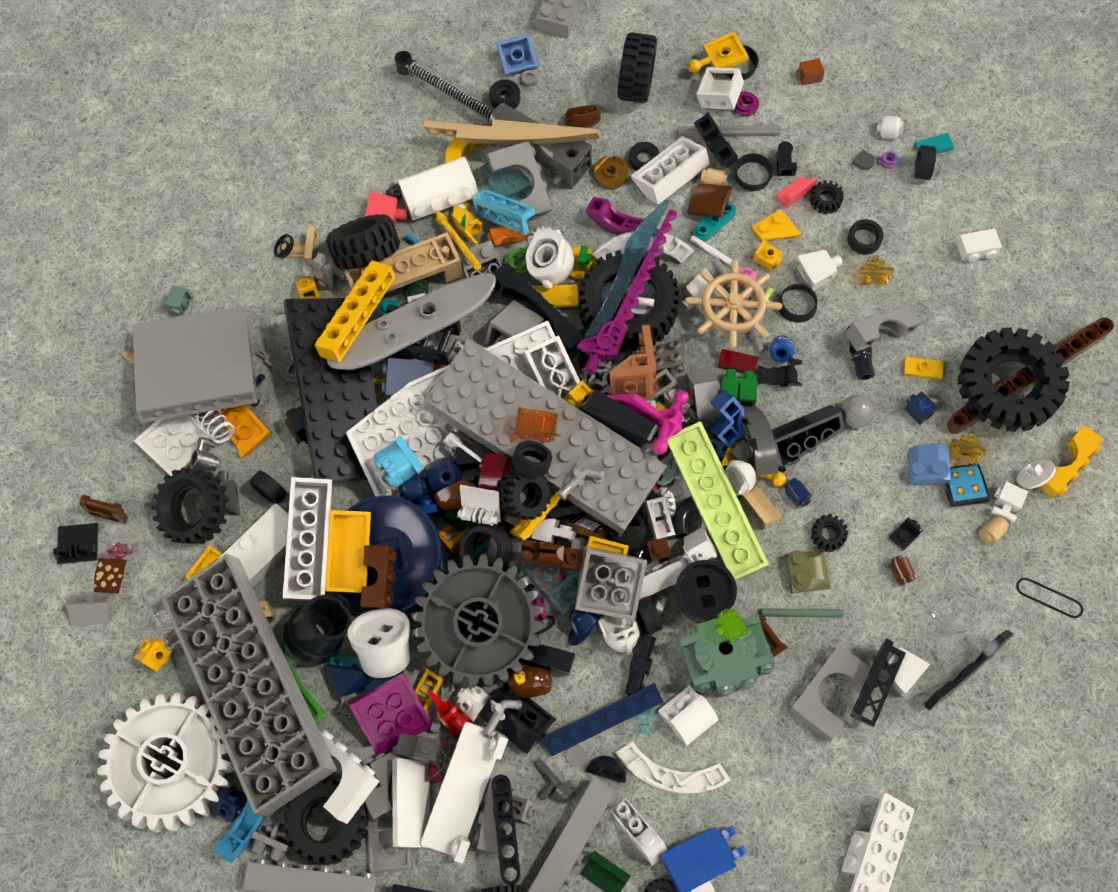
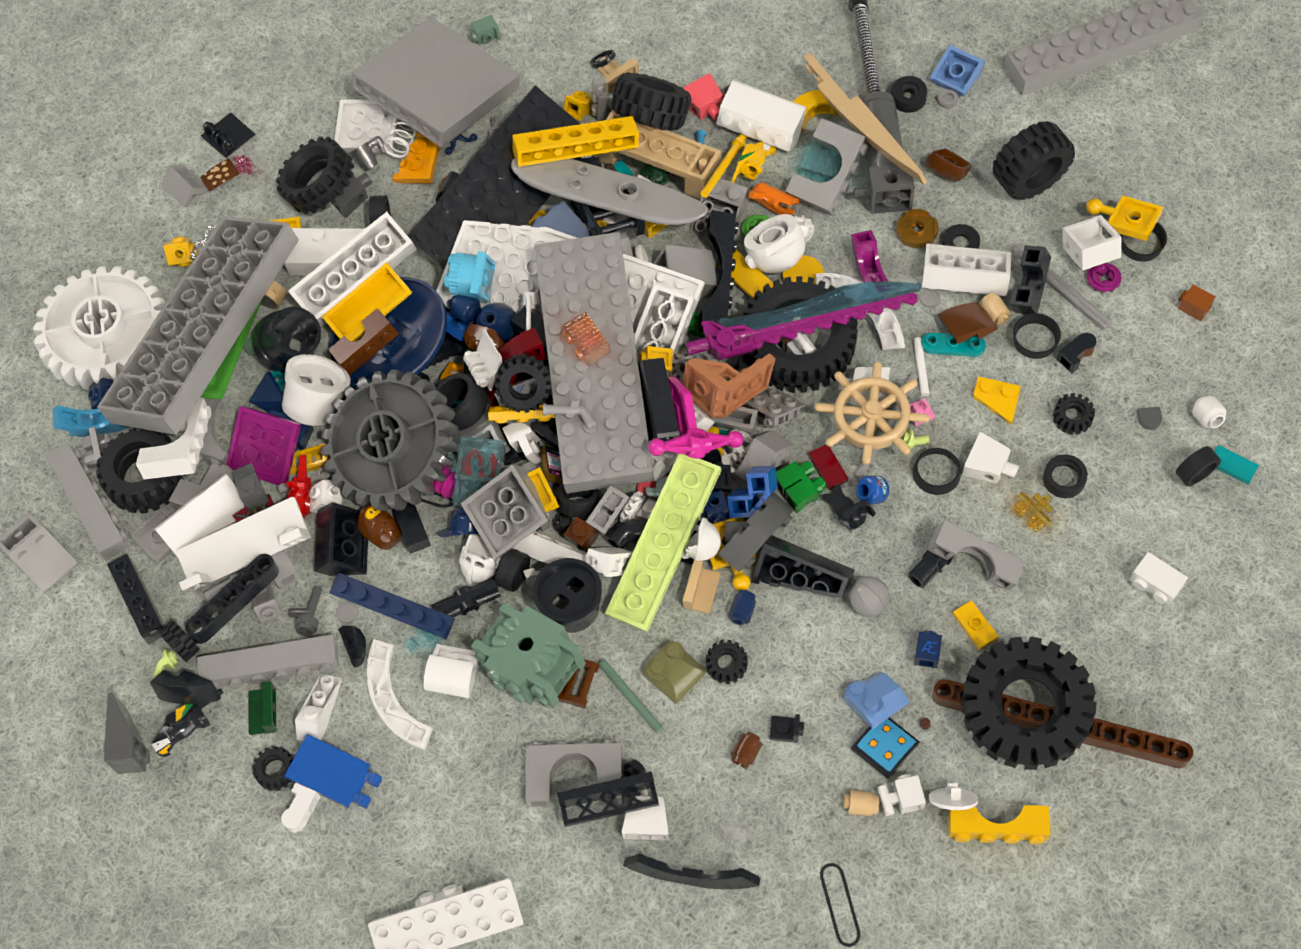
camera: 55 degrees right, 5 degrees down
(103, 509) = (265, 124): reddish brown plate -> none
(498, 709) = (322, 518): light grey piece -> none
(503, 206) = (786, 174): medium azure fence -> none
(528, 467) = (540, 365): black tyre -> none
(551, 555) = (486, 444): reddish brown plate -> none
(584, 258) = (805, 268): green plate -> none
(730, 625) = (544, 629): clear neon green brick -> none
(768, 256) = (955, 405): yellow brick -> none
(795, 191) = (1052, 384): coral panel -> none
(862, 651) = (633, 768): none -> black plate
(889, 155) = (1173, 431): medium lavender plate -> none
(969, 446) = (922, 728): clear yellow hips -> none

